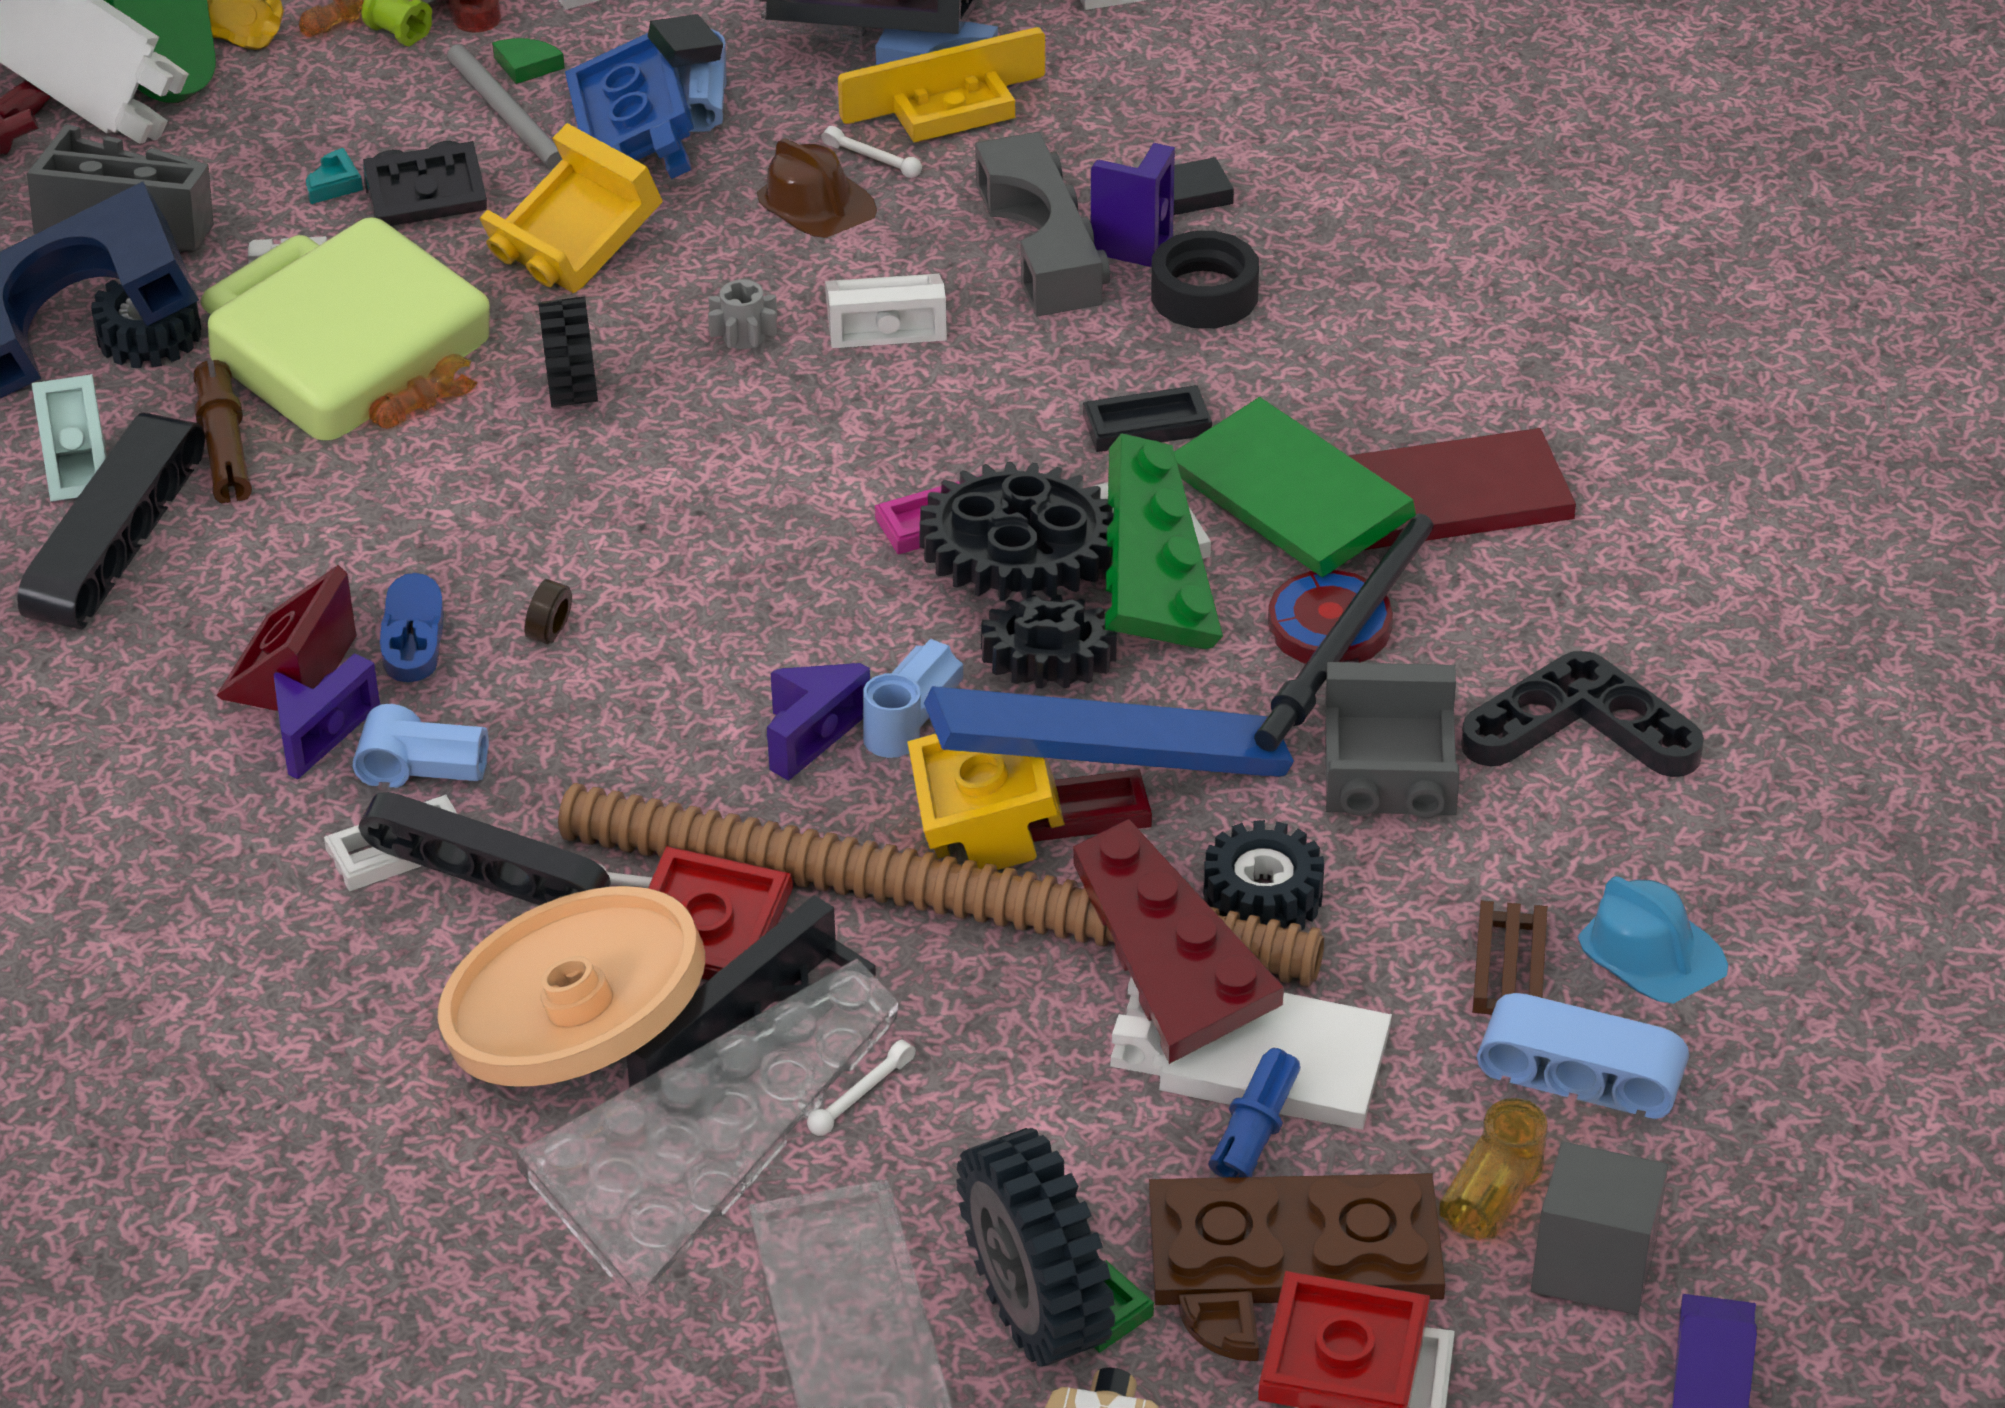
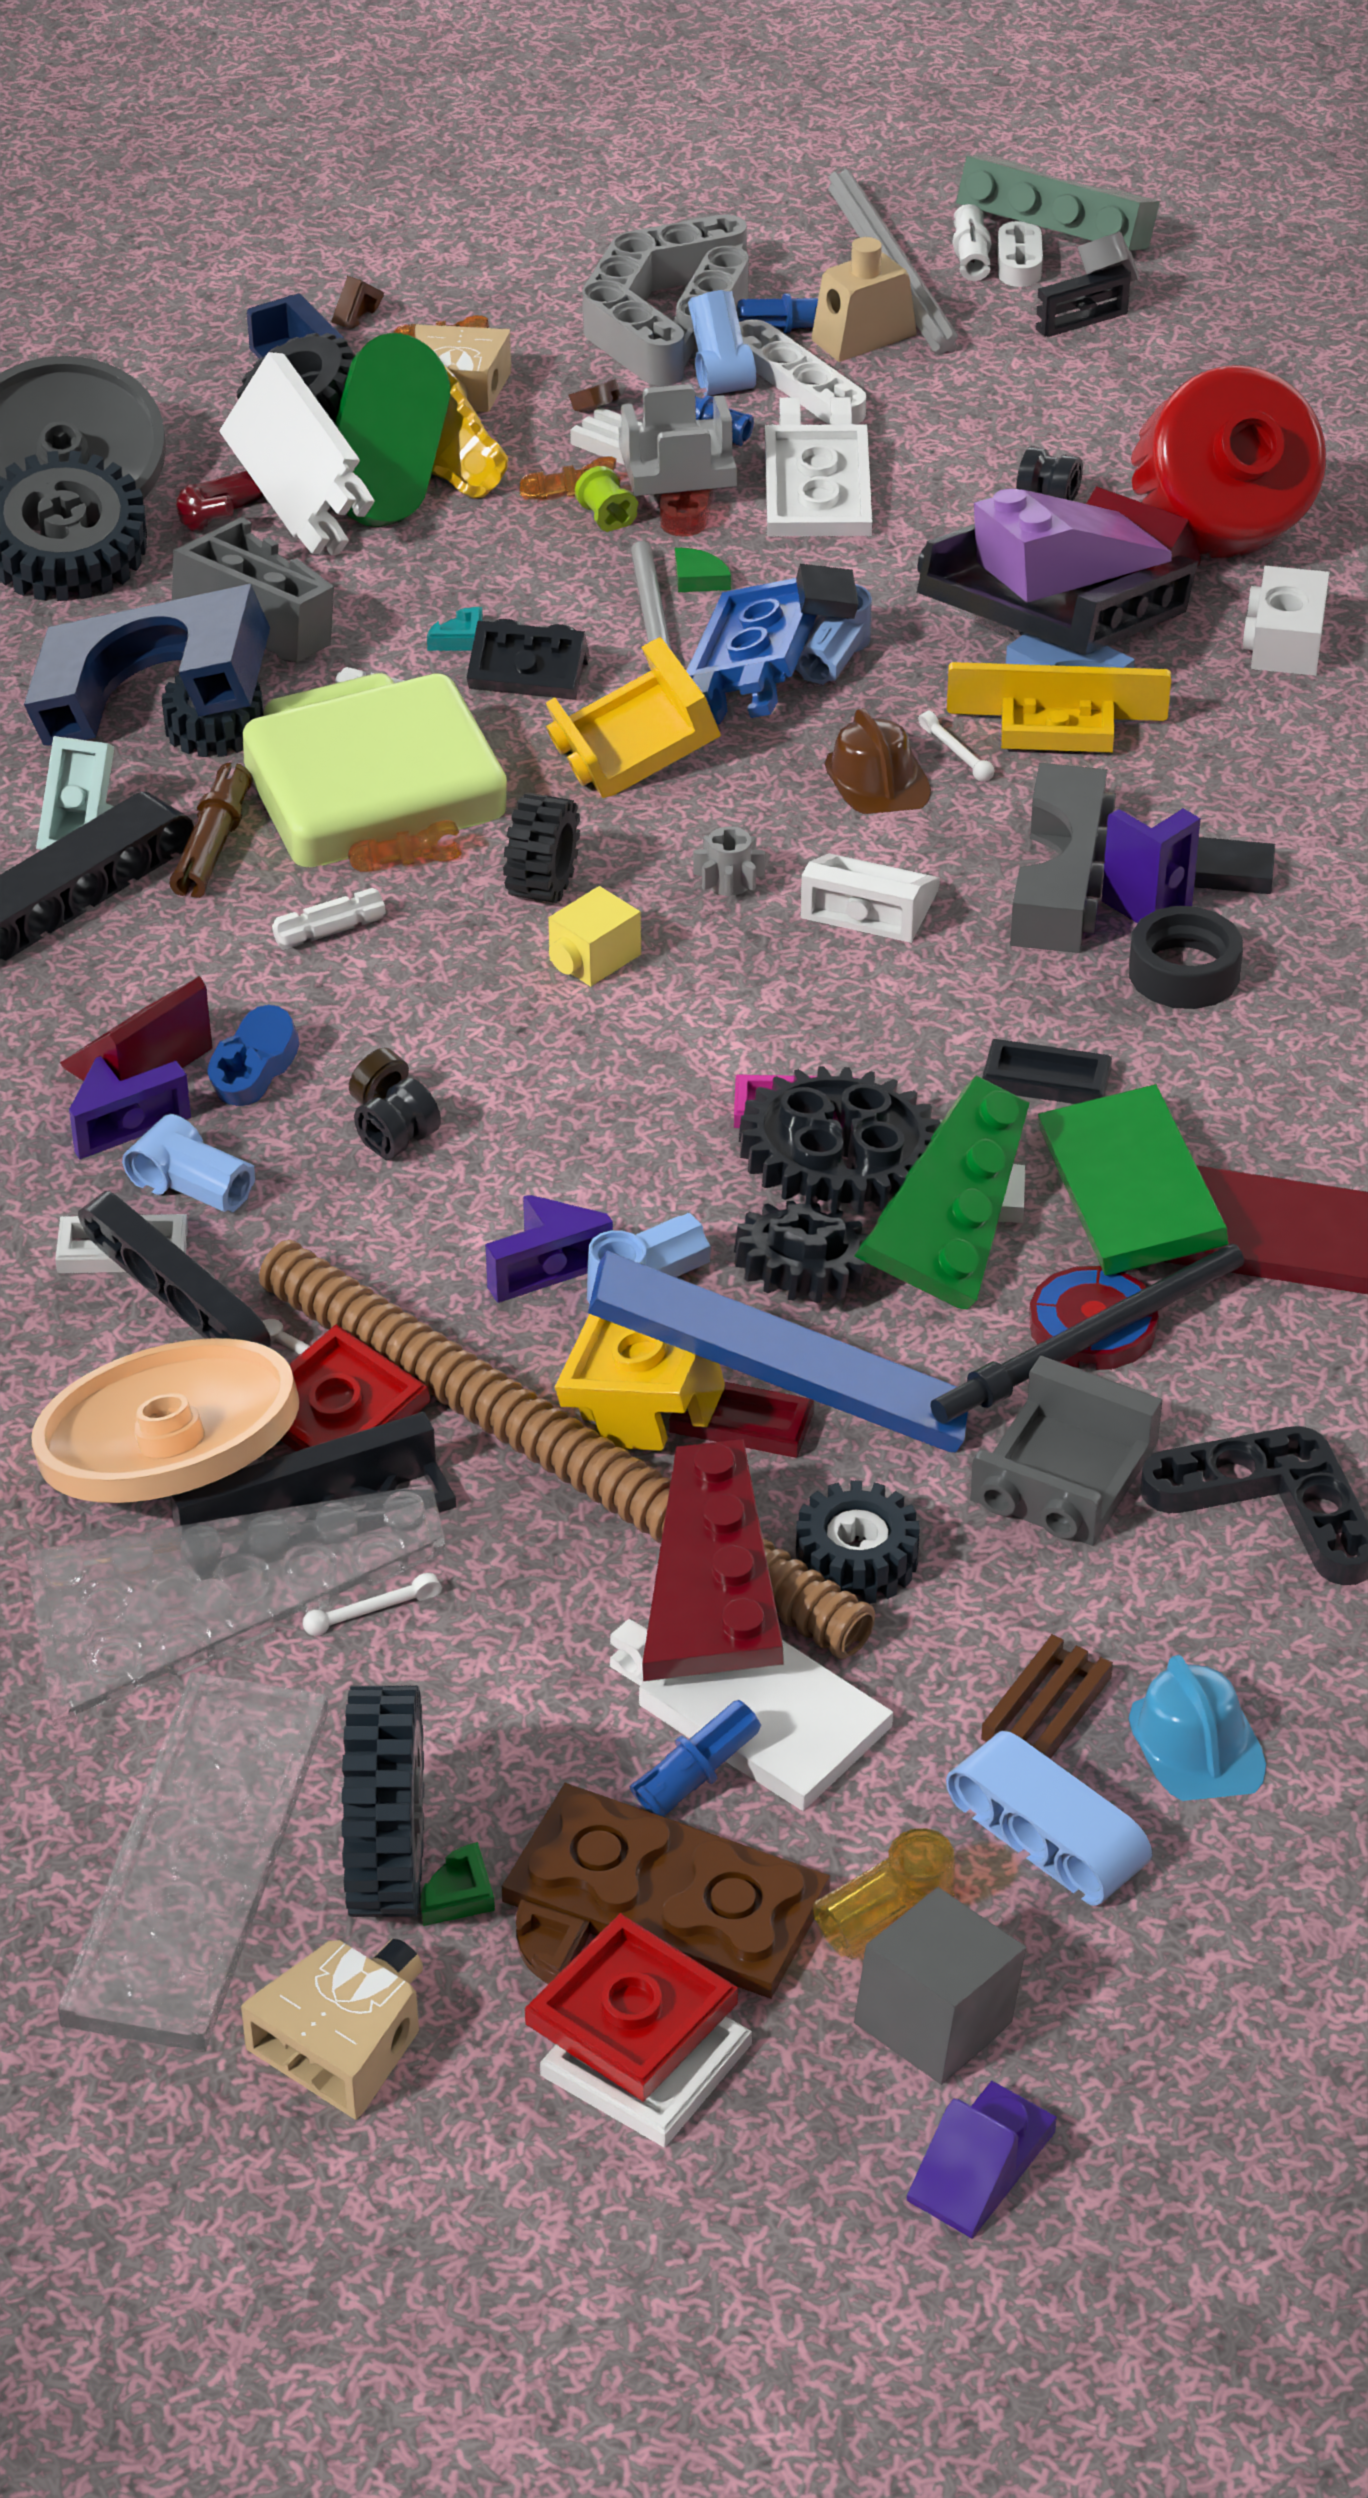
camera: 25 degrees right, 0 degrees up
(392, 480) = (328, 918): none -> white axle
(591, 642) = (393, 1121): none -> black wheel
(664, 419) = (594, 936): none -> light yellow brick

